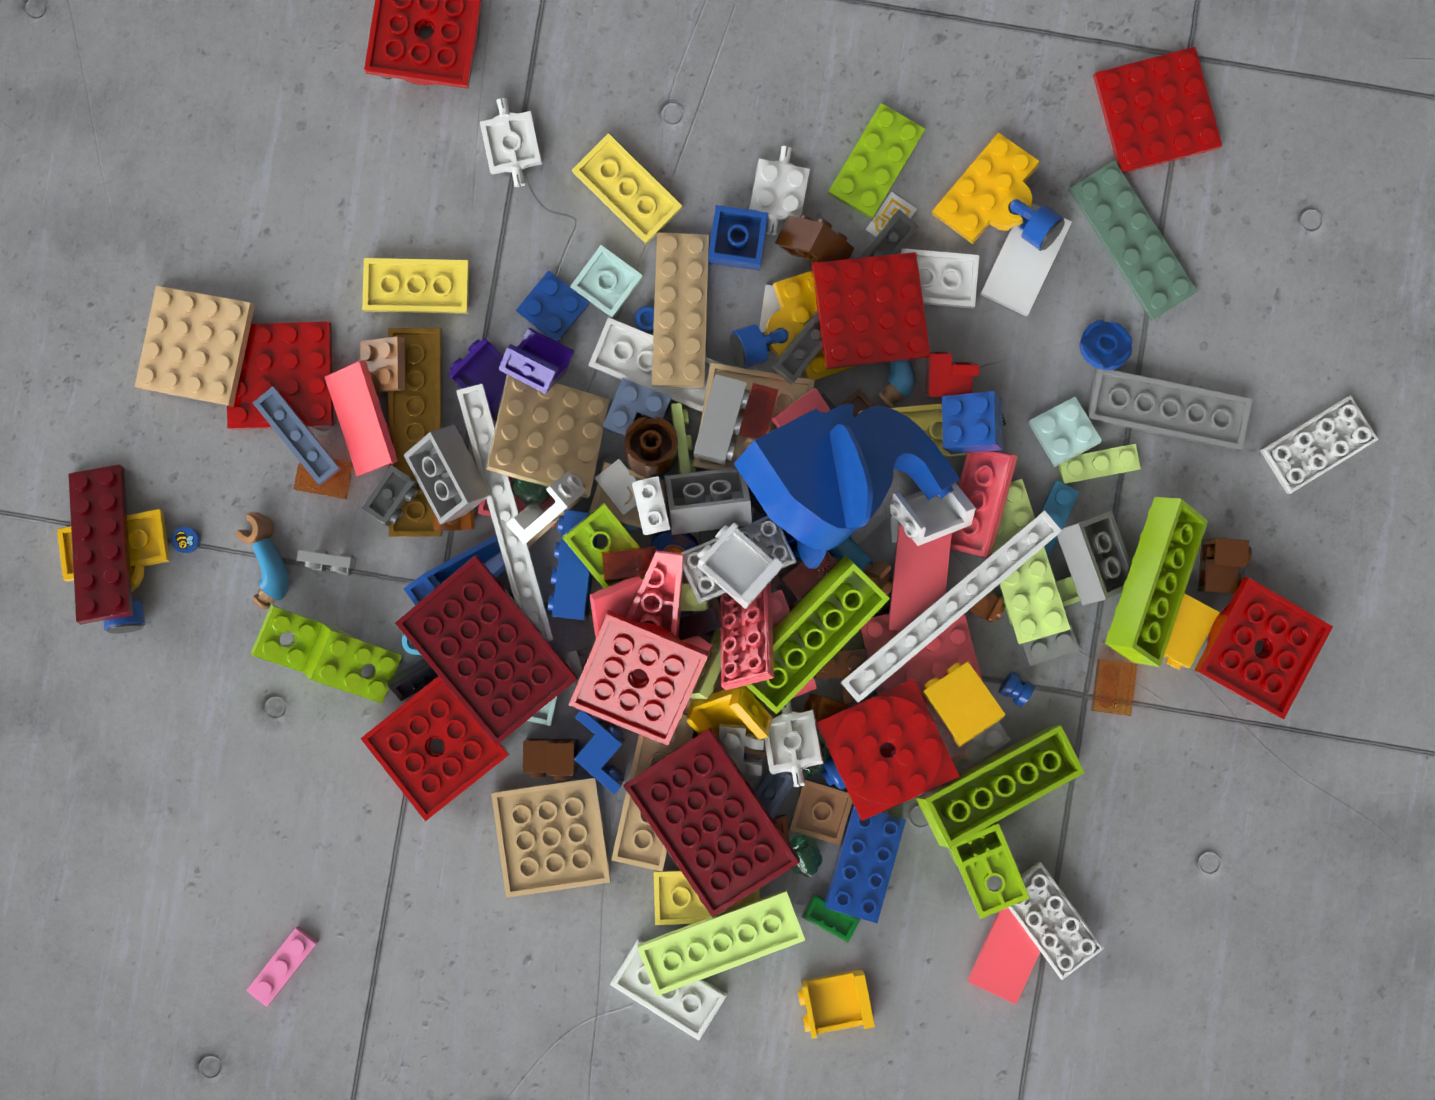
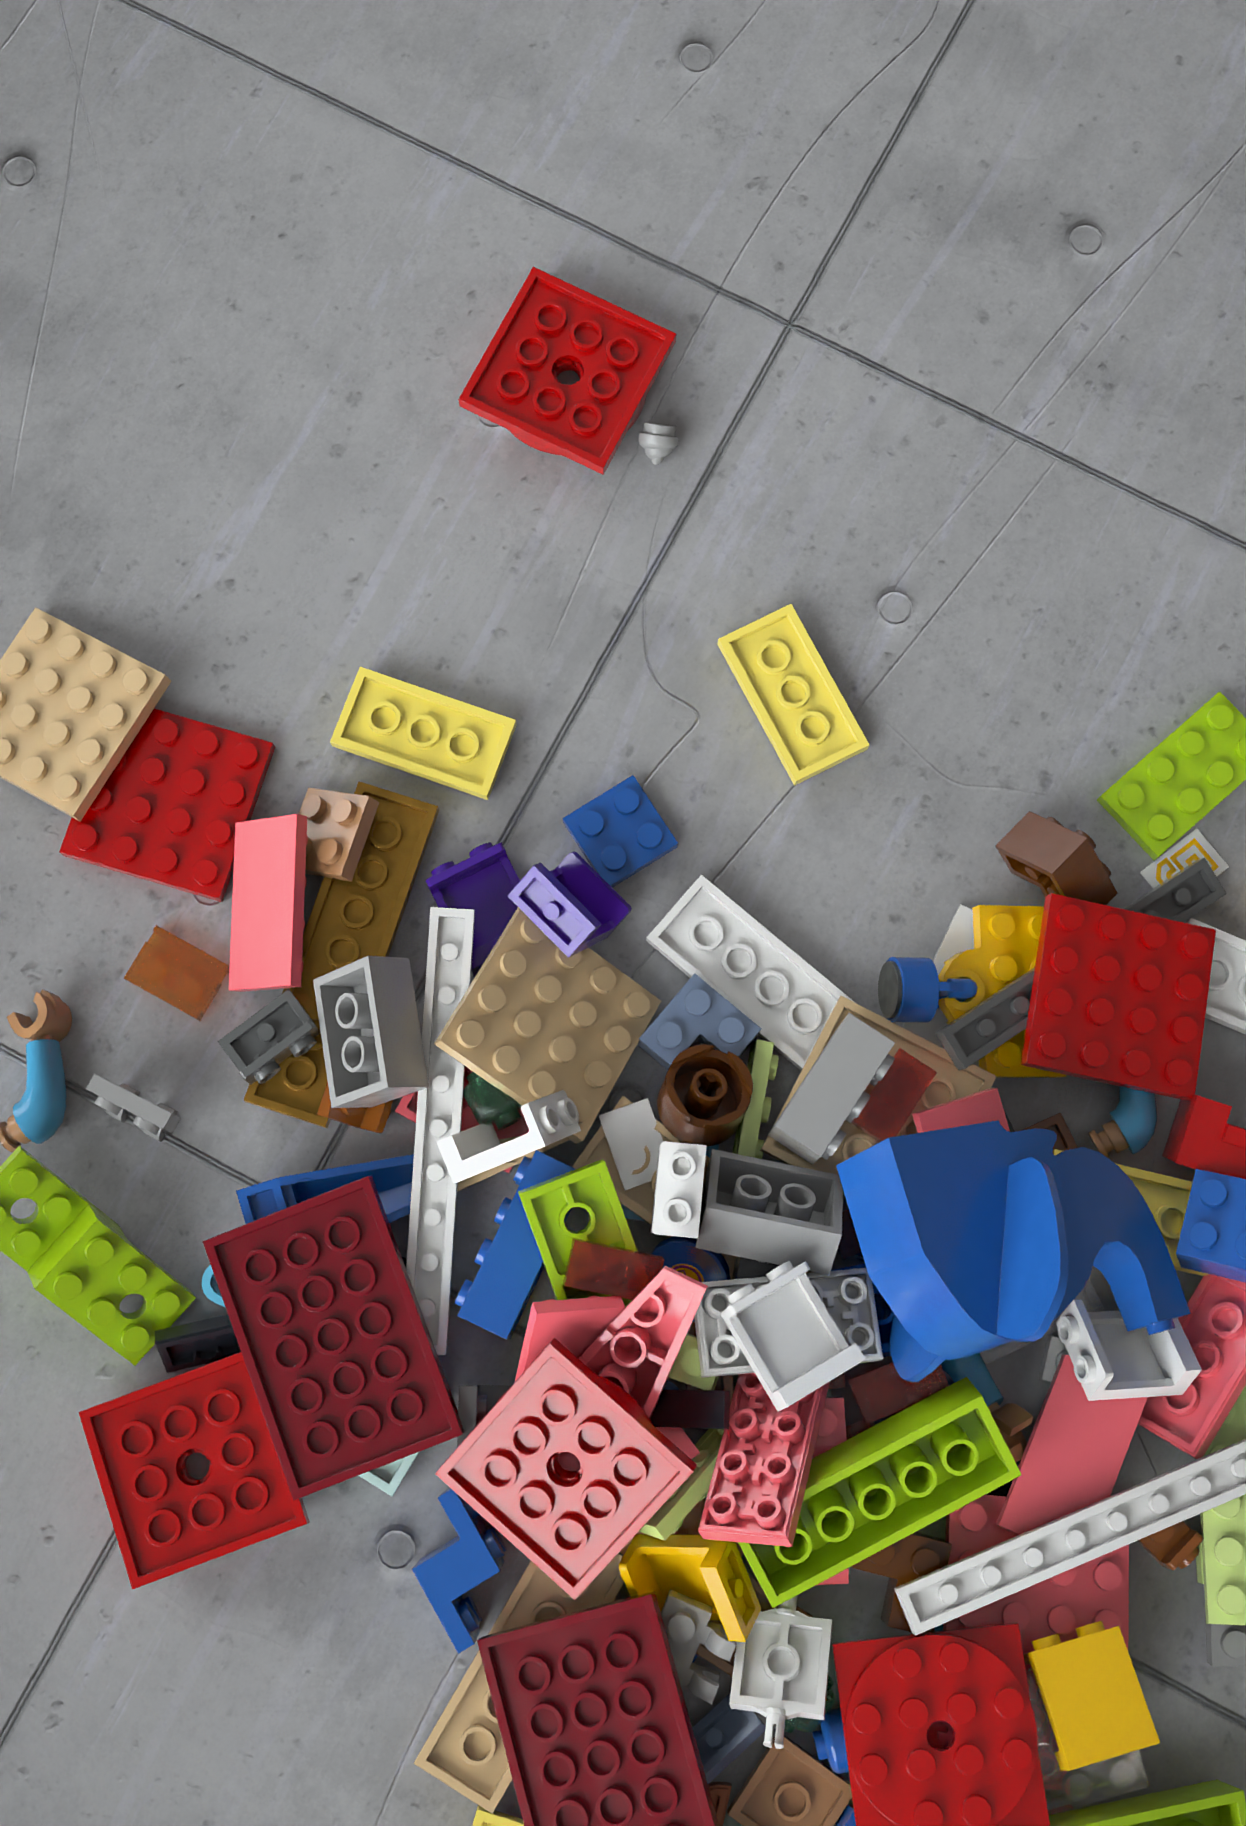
camera: 15 degrees right, 10 degrees down
(296, 435) = (159, 897): sand blue plate -> none
(494, 54) = (658, 441): none -> light grey plate
(510, 142) = (639, 571): white plate -> none
(550, 757) = (374, 1549): reddish brown brick -> none
(551, 837) = (327, 1688): tan plate -> none
(606, 281) = (716, 821): light aqua plate -> none
(645, 319) = (761, 898): blue tile -> none
(680, 310) = (816, 902): tan plate -> none
(737, 238) = (941, 820): blue brick -> none
(779, 189) = (1024, 769): white plate -> none
(823, 706) = (849, 1619): dark orange bracket -> none
(1016, 688) = (1178, 1696): blue wheel -> none

